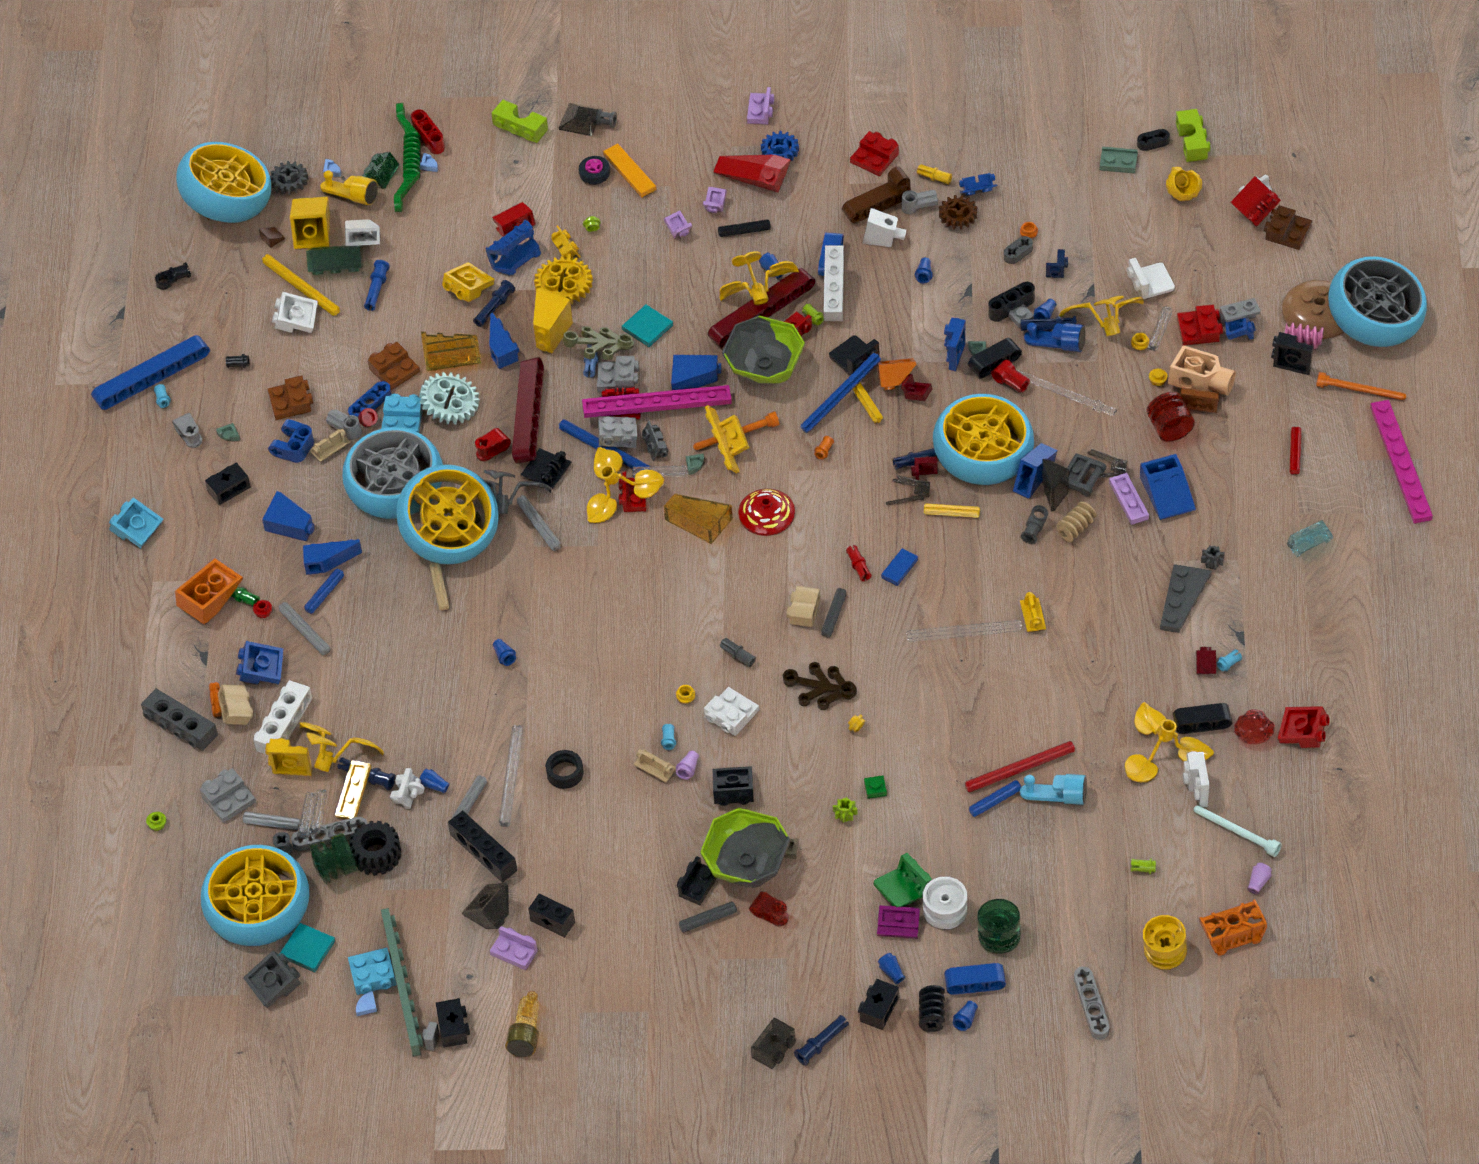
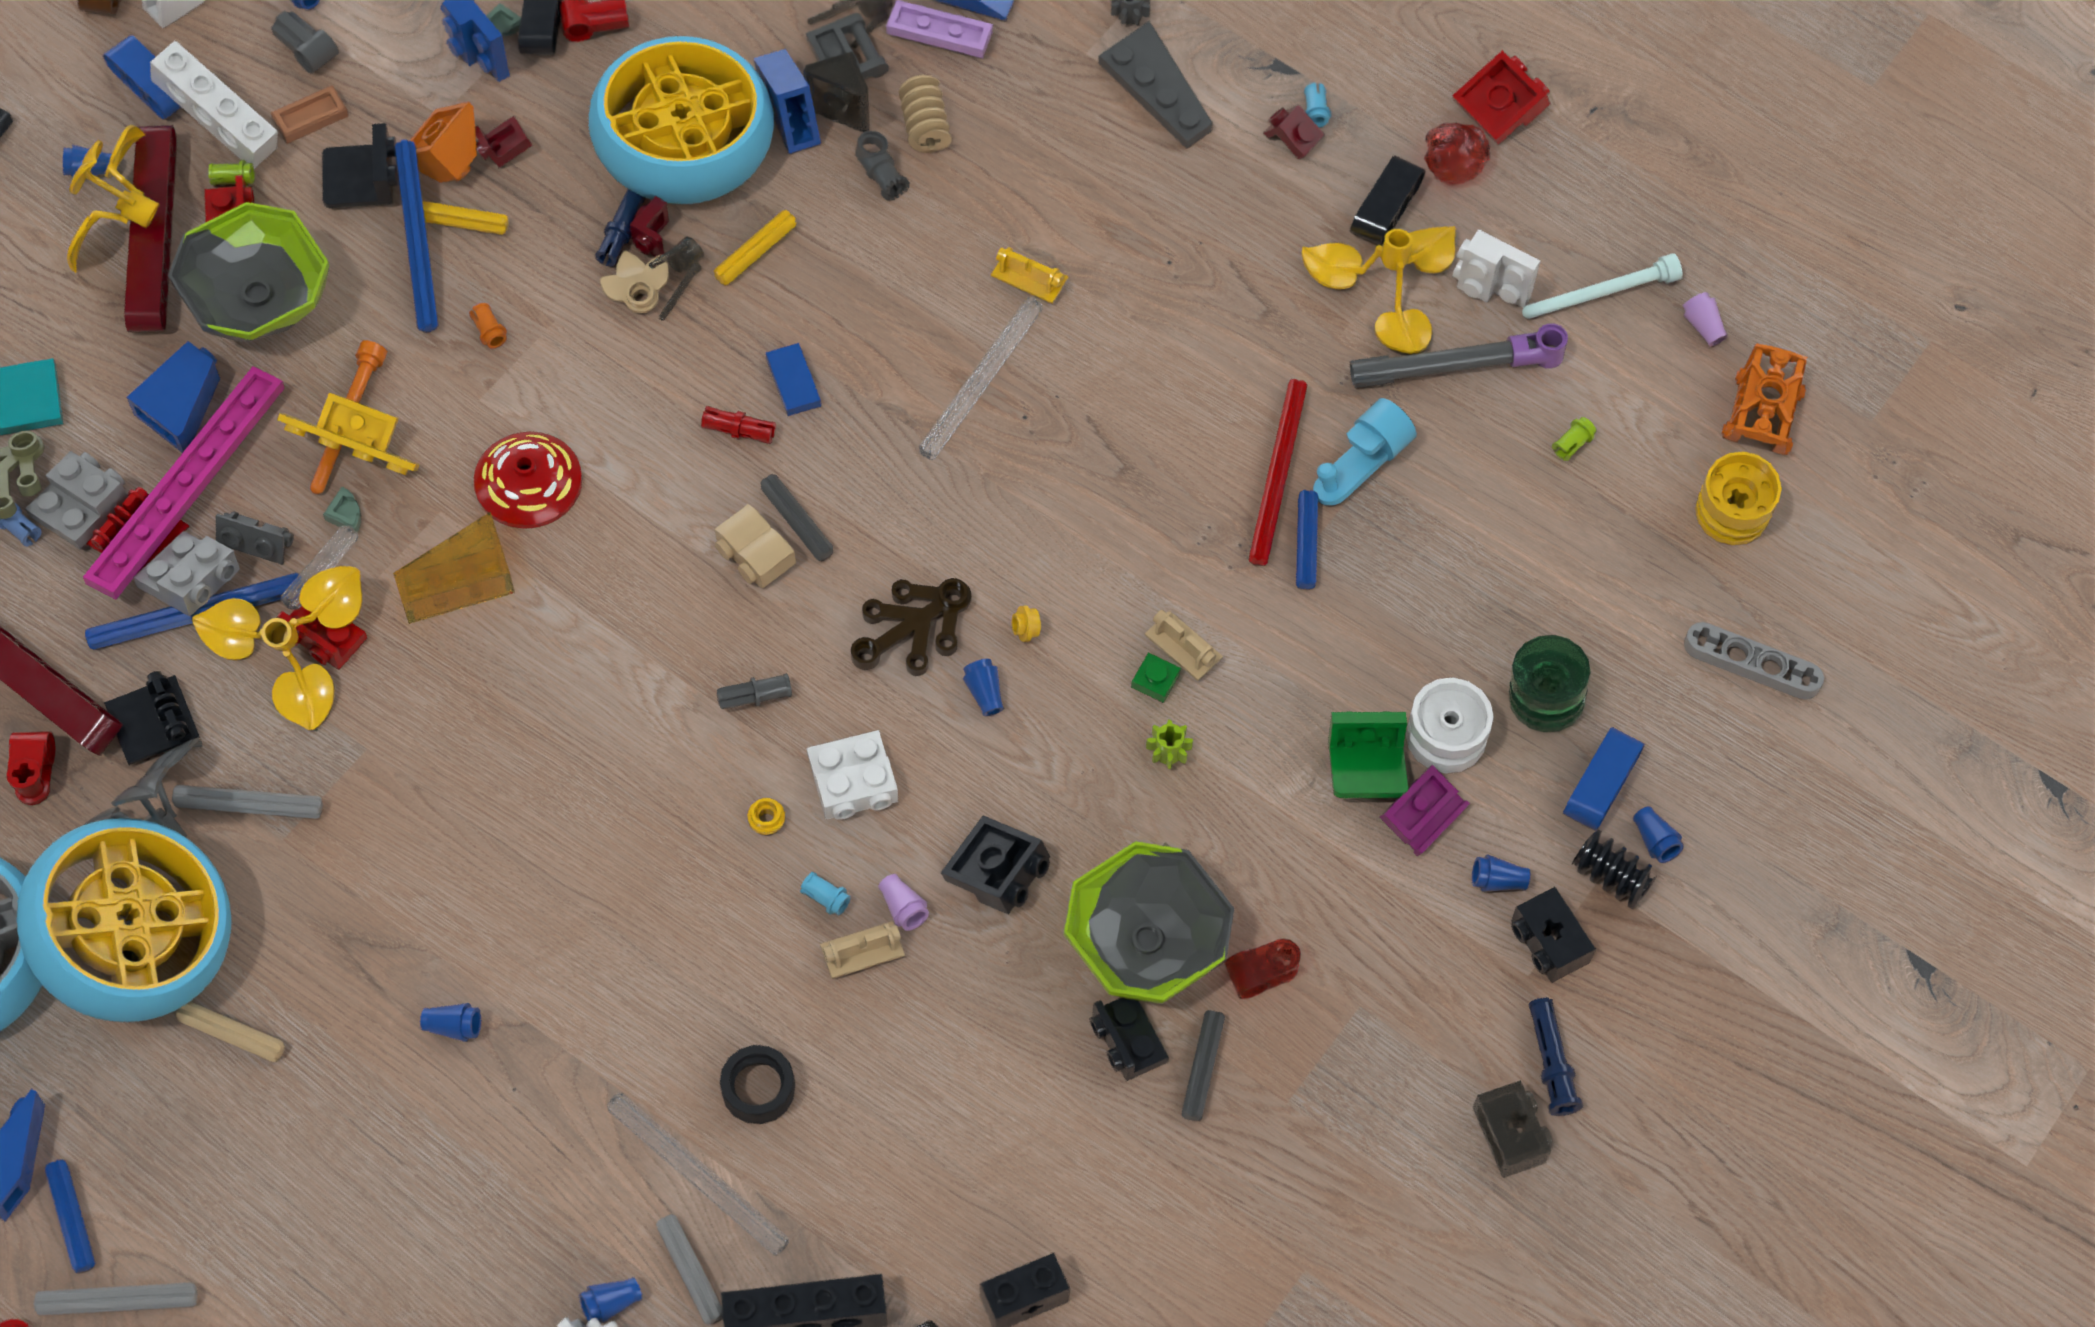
camera: 60 degrees left, 10 degrees up
(813, 728) = (984, 685): none -> blue cone
(868, 319) = (309, 114): none -> nougat tile
(890, 480) = (635, 279): none -> tan plate
(899, 294) = (309, 47): none -> dark grey piece
(900, 785) = (1182, 644): none -> tan hinge
(1167, 815) = (1517, 350): none -> dark grey piece

